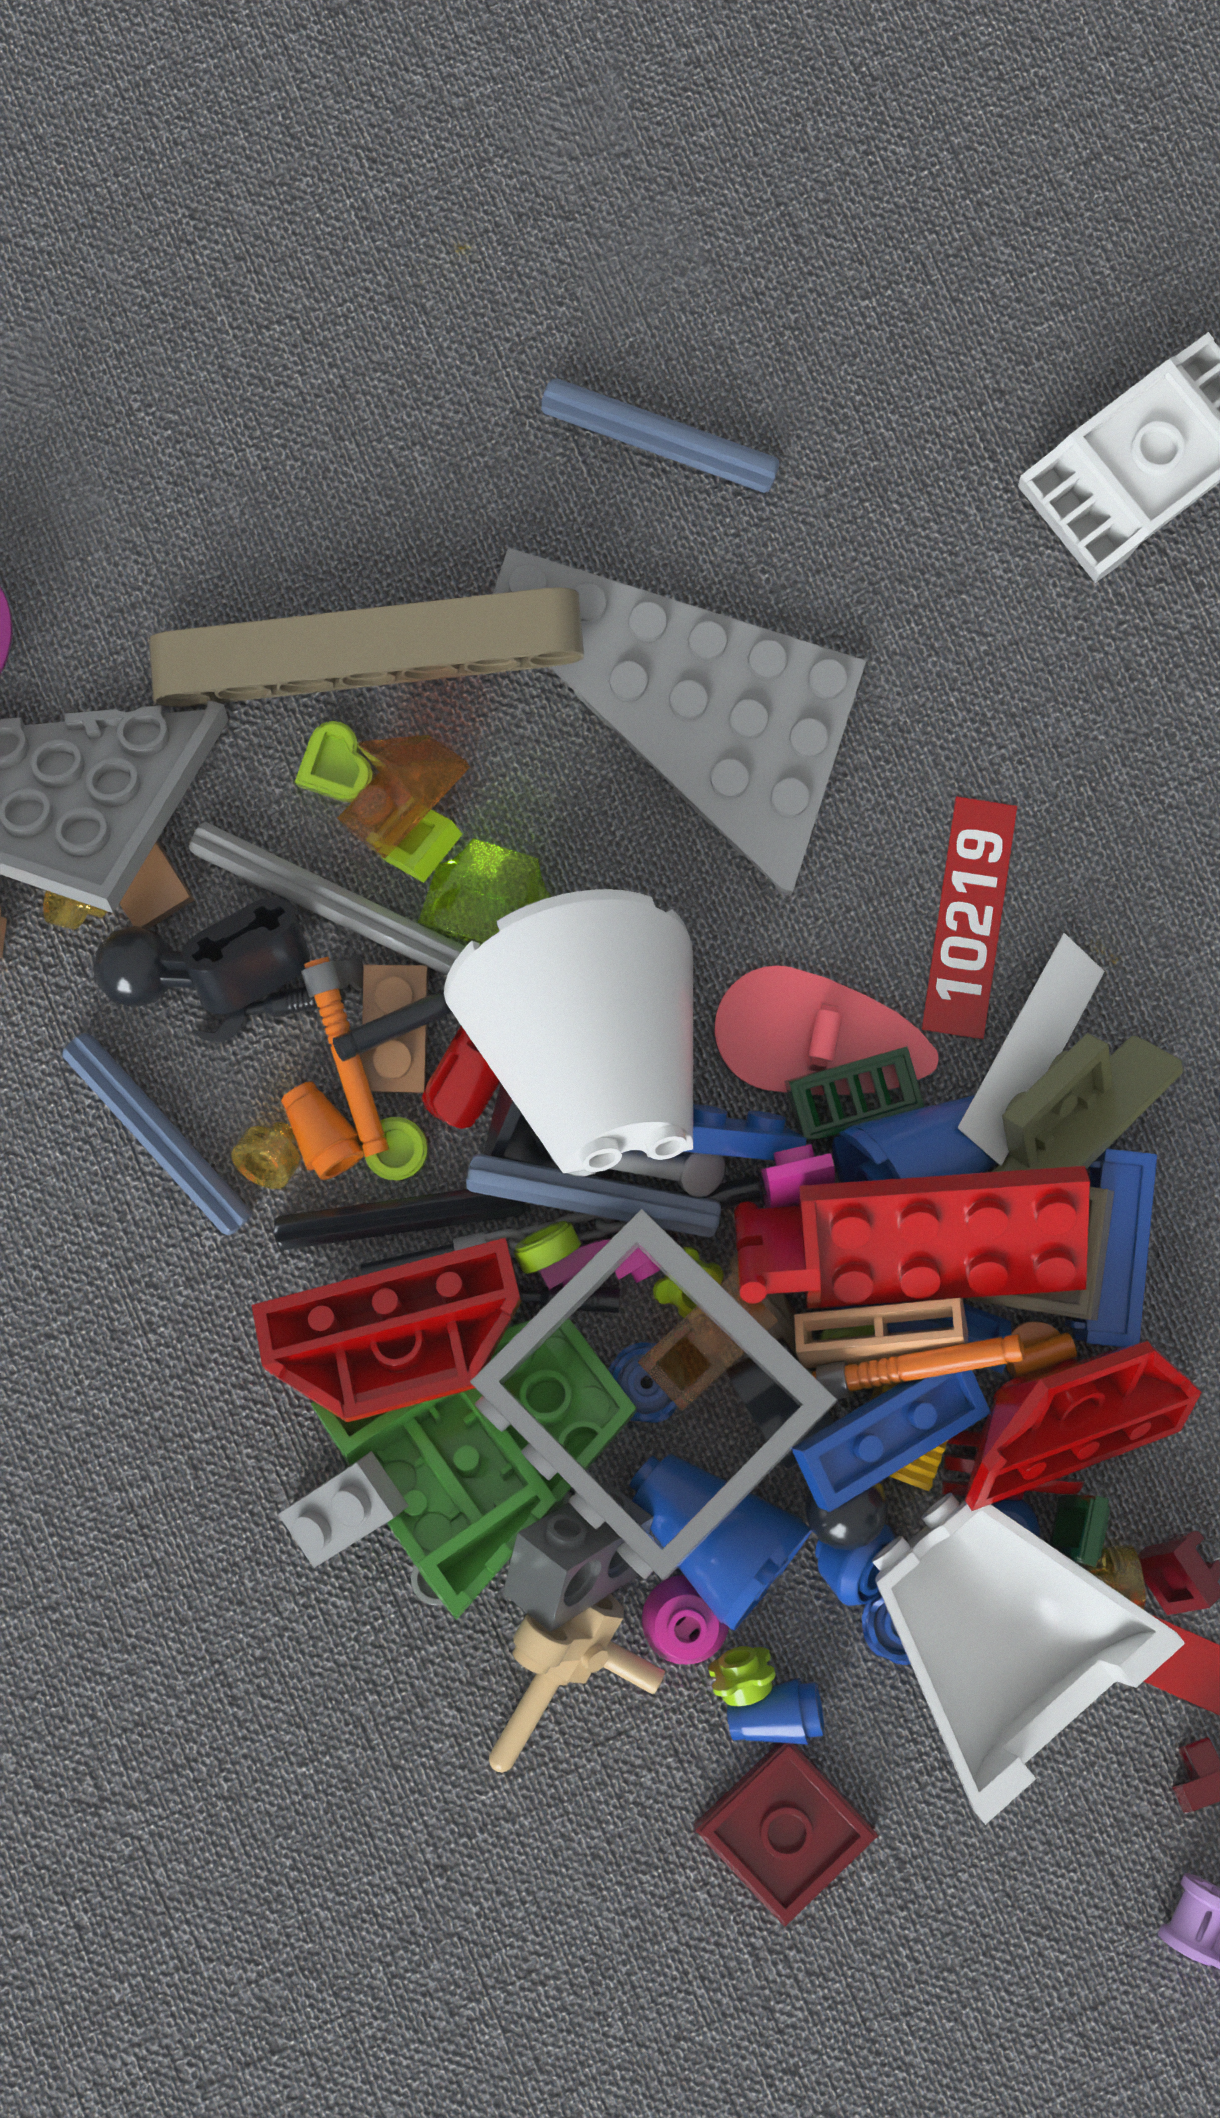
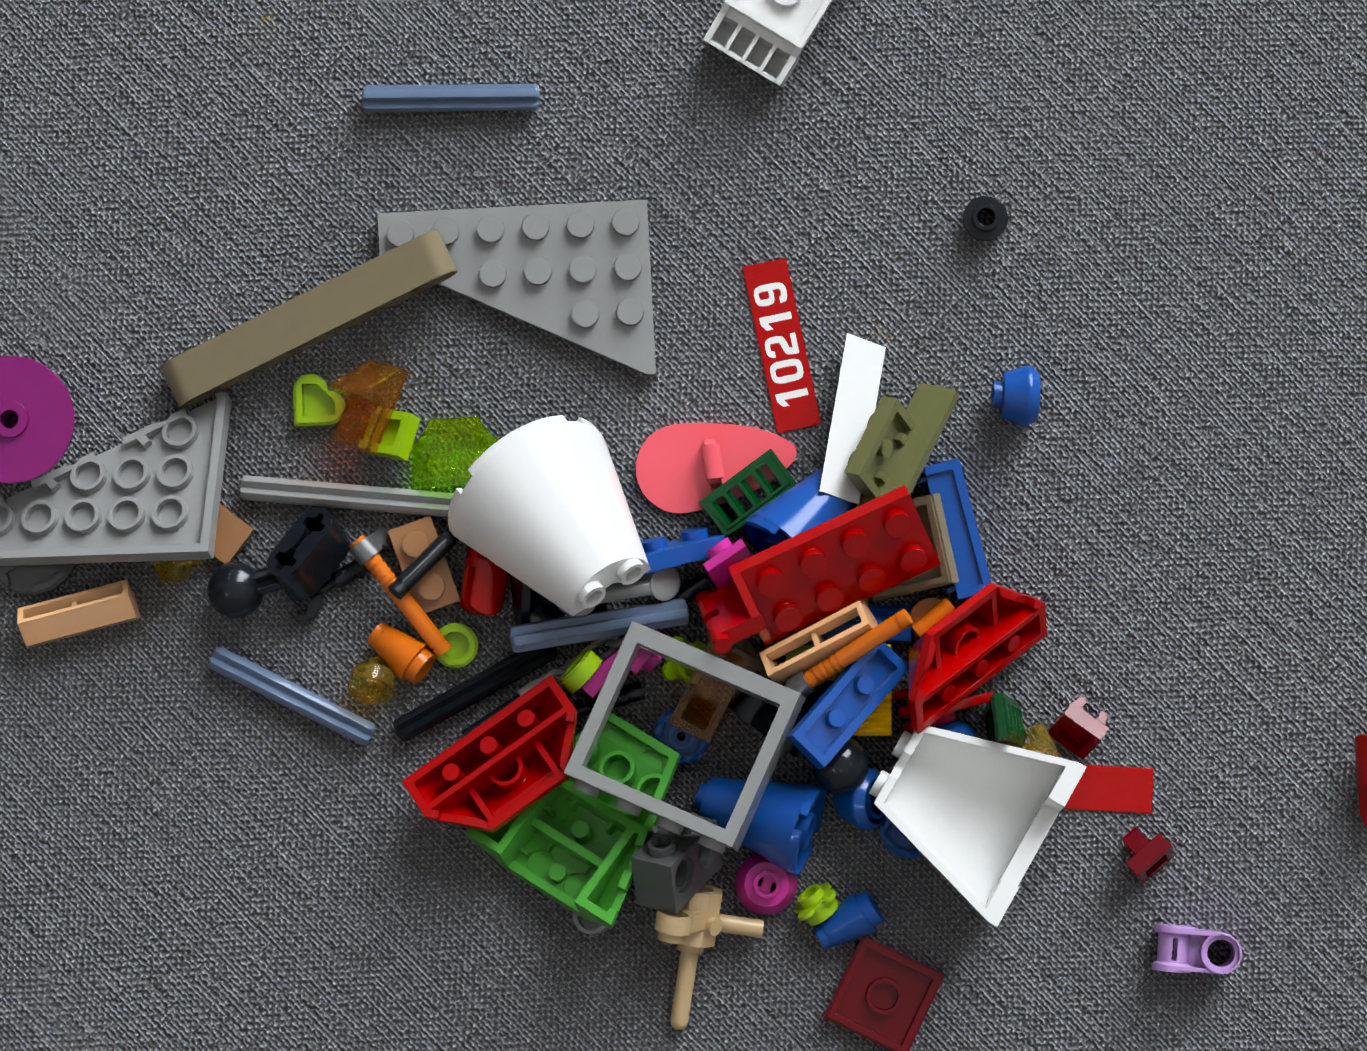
camera: 20 degrees left, 0 degrees up
(343, 1509) = (512, 894): light grey plate -> none

